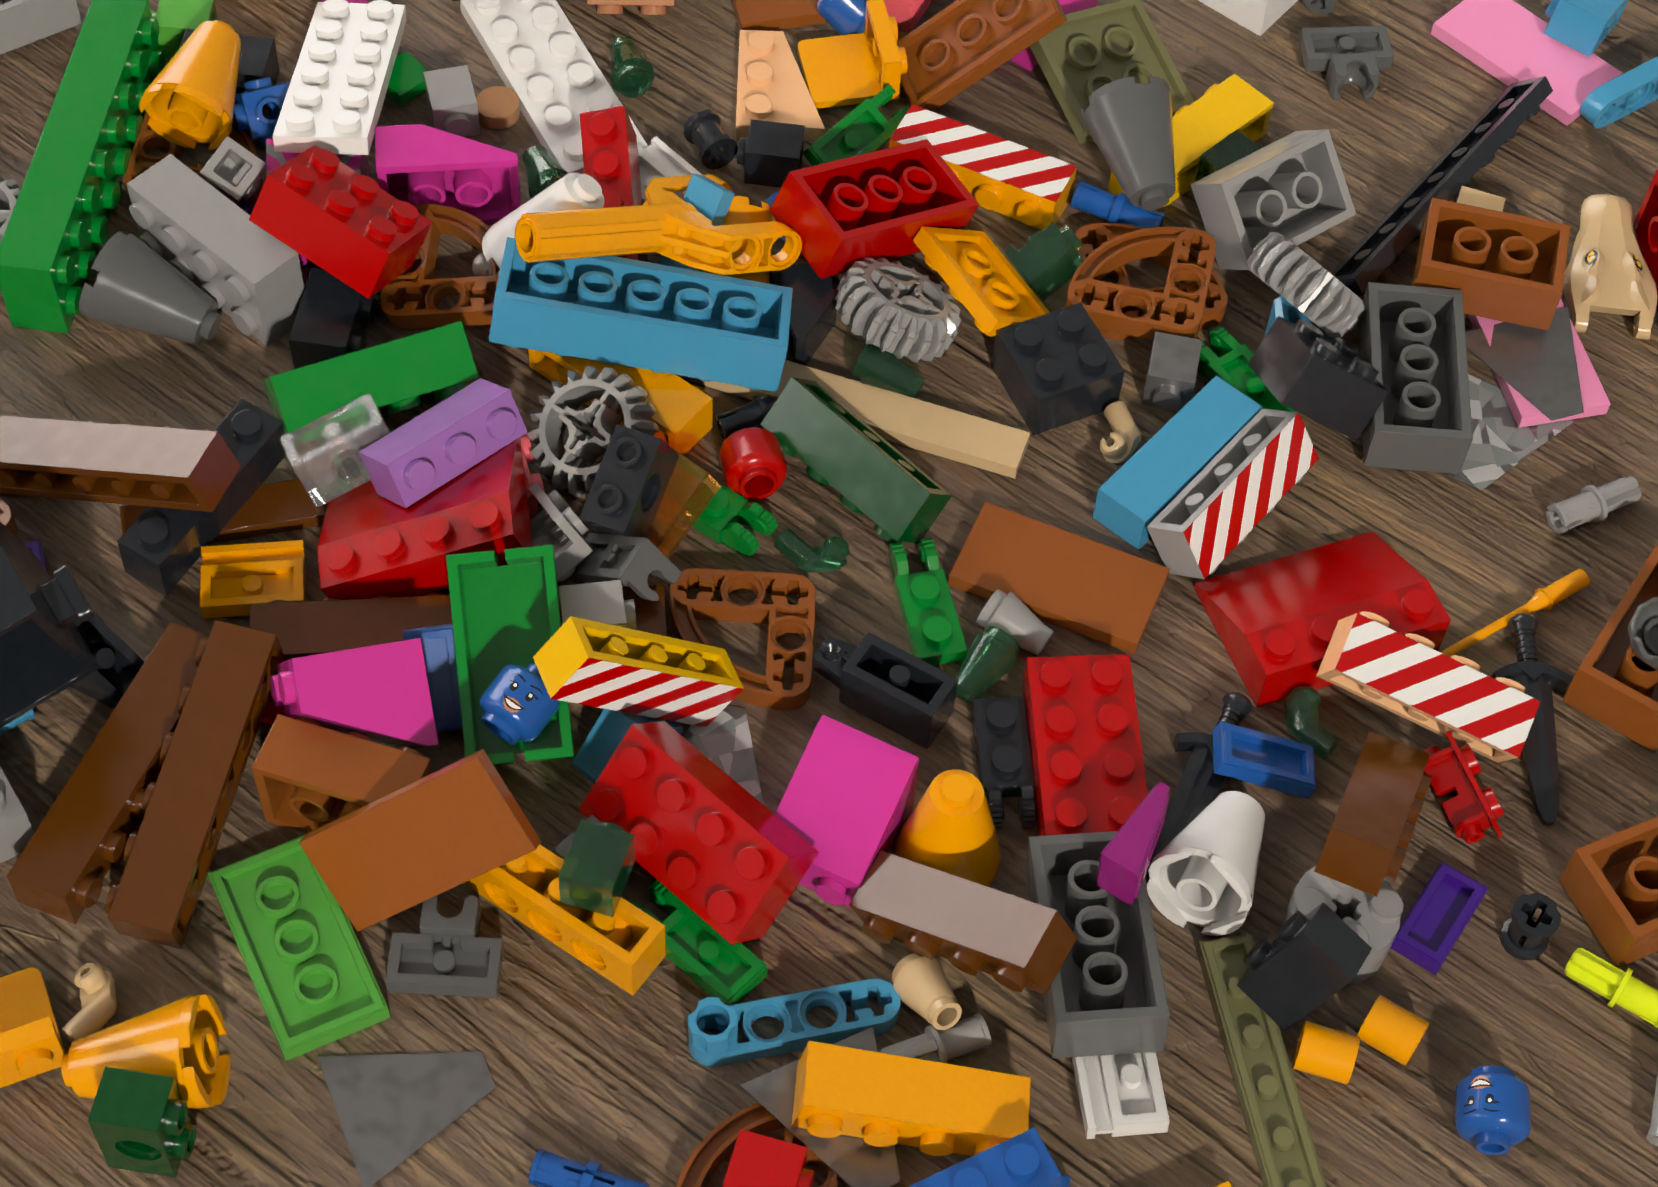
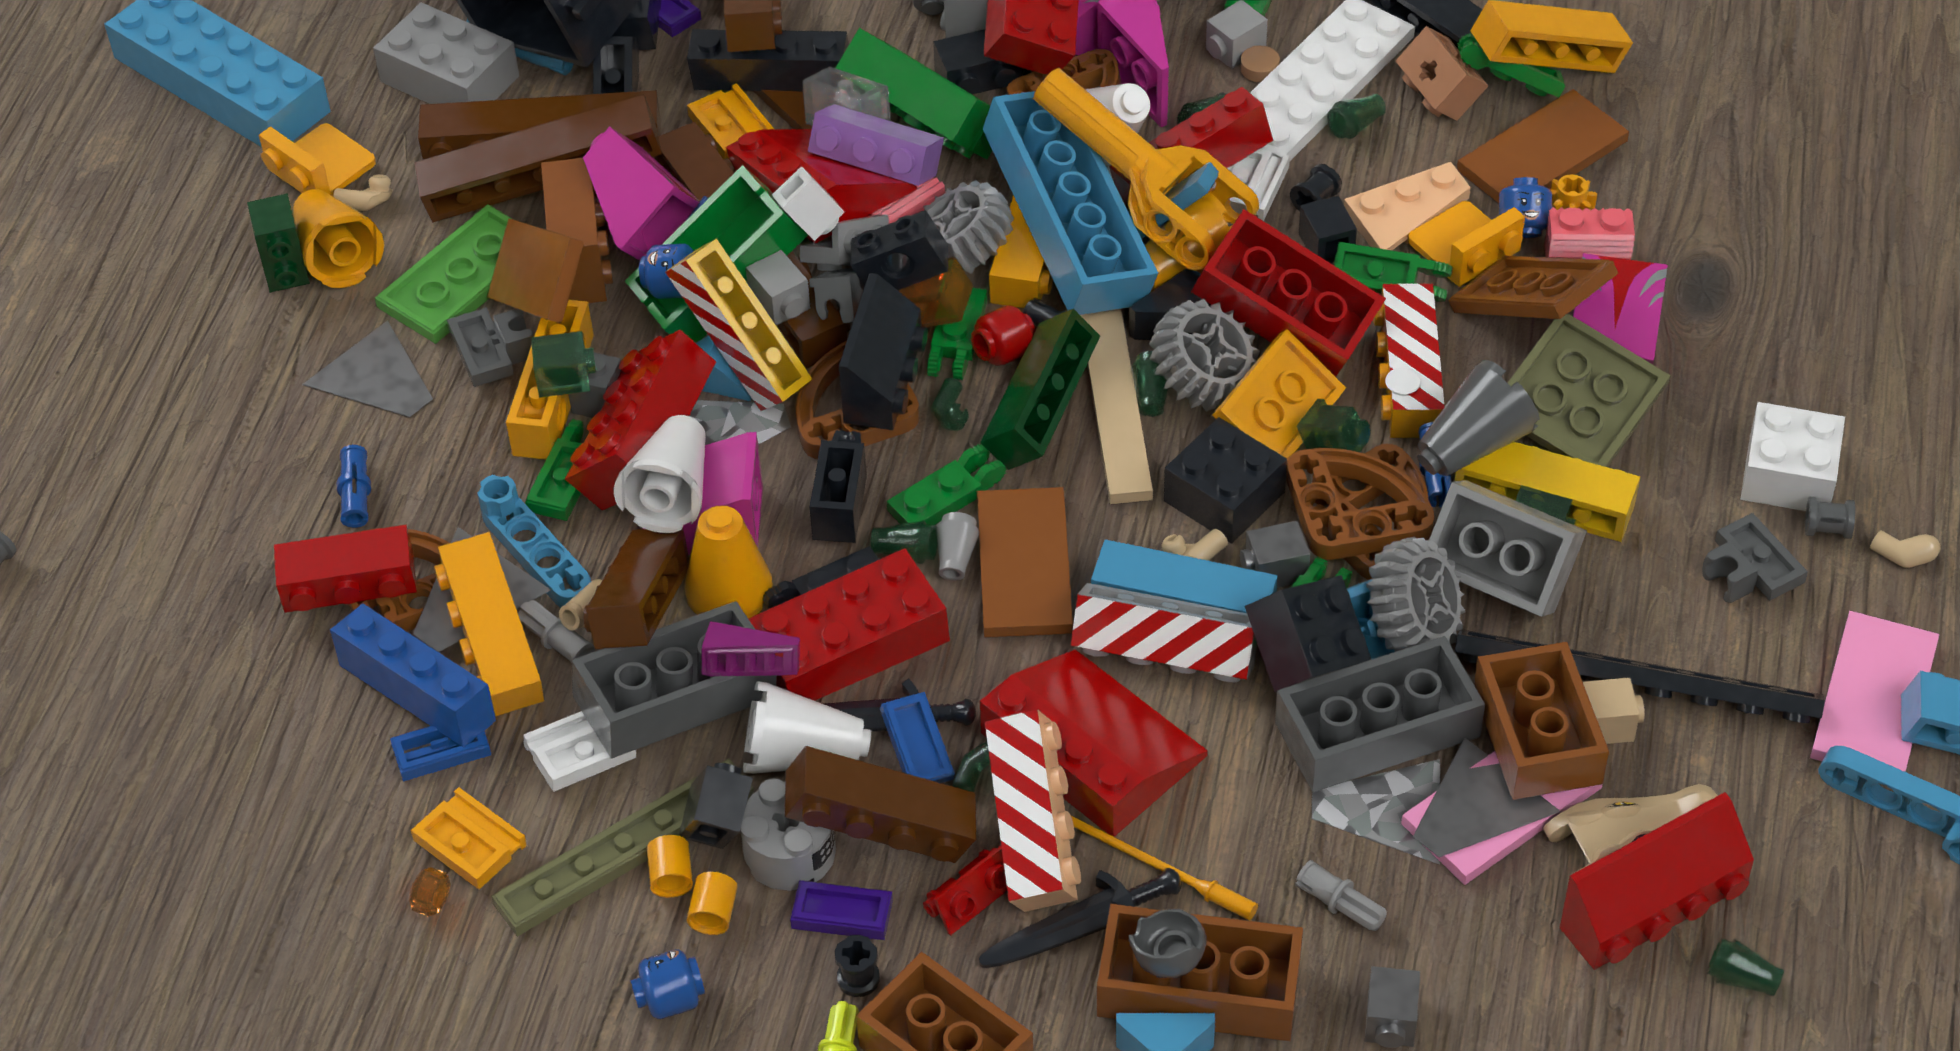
camera: 70 degrees right, 5 degrees down
(533, 521) = (808, 204): none -> white brick
(746, 574) = (880, 356): none -> black slope
(838, 819) = (665, 477): none -> white cone
(1025, 178) = (1403, 381): none -> white sticker

